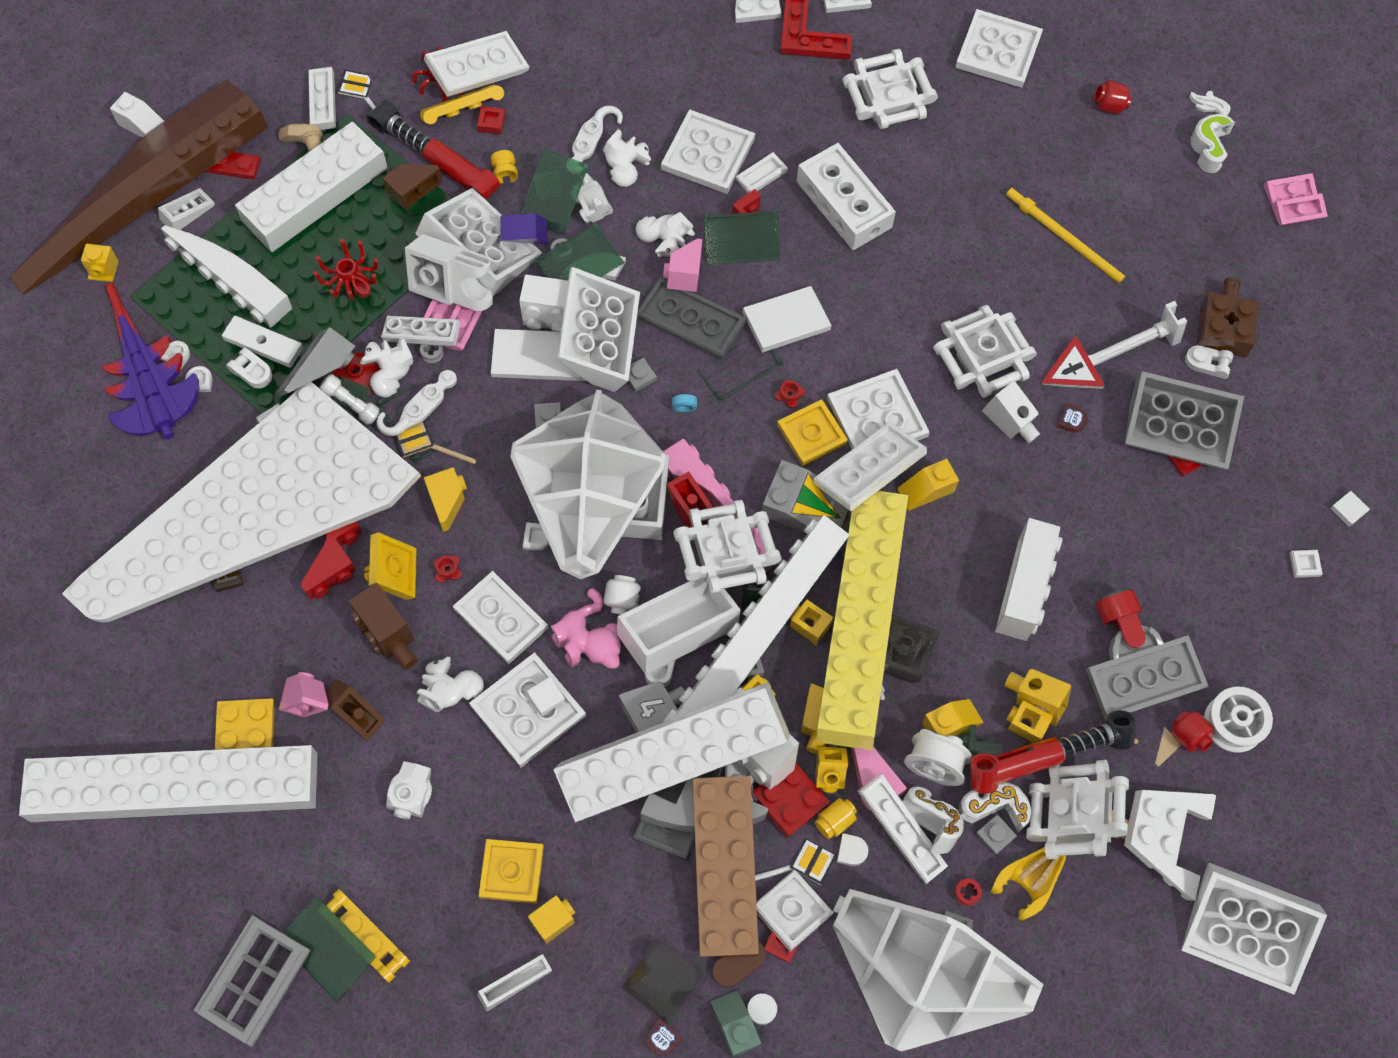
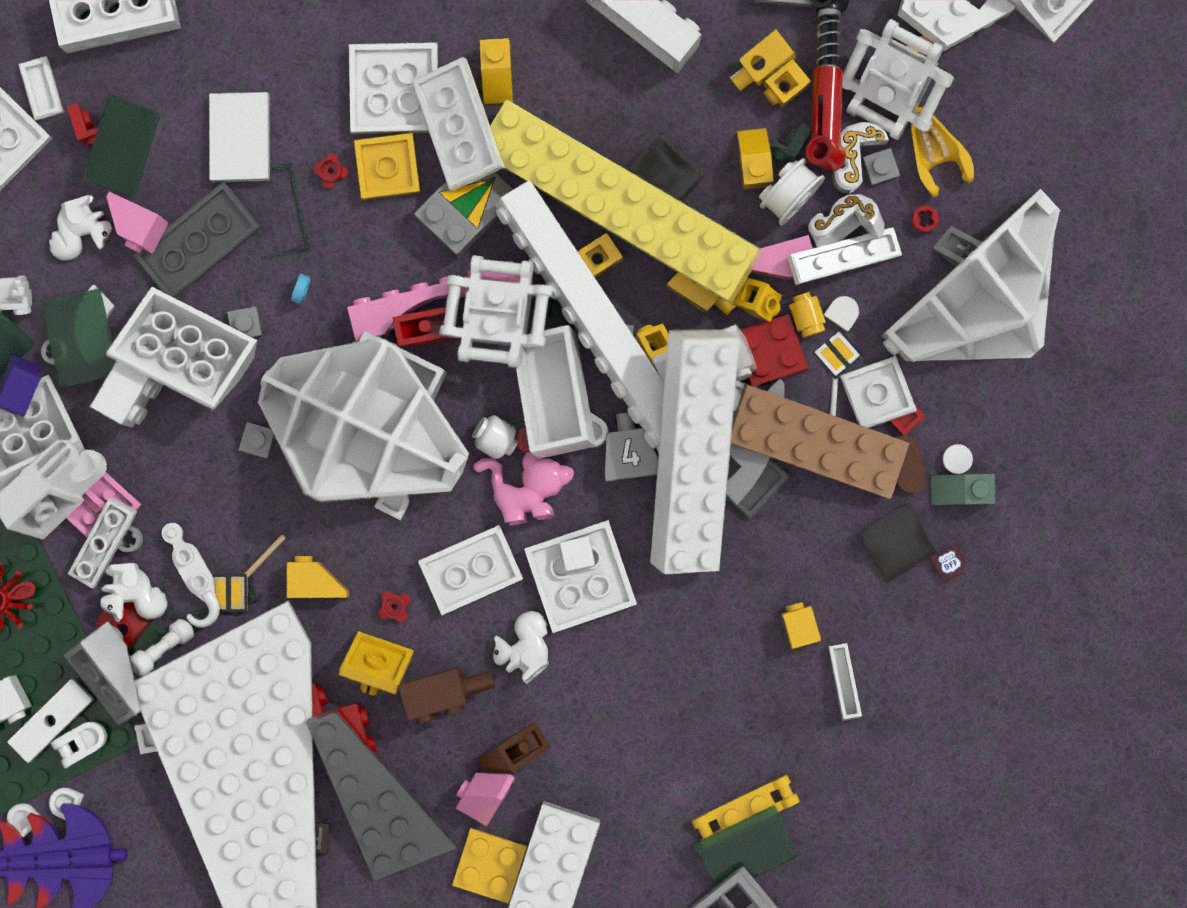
camera: 65 degrees left, 20 degrees up
(266, 615) = (379, 808): none -> dark grey wing
(409, 791) = (620, 721): white hand -> none
(511, 871) = (738, 648): yellow plate -> none
(529, 356) = (173, 435): white tile -> none

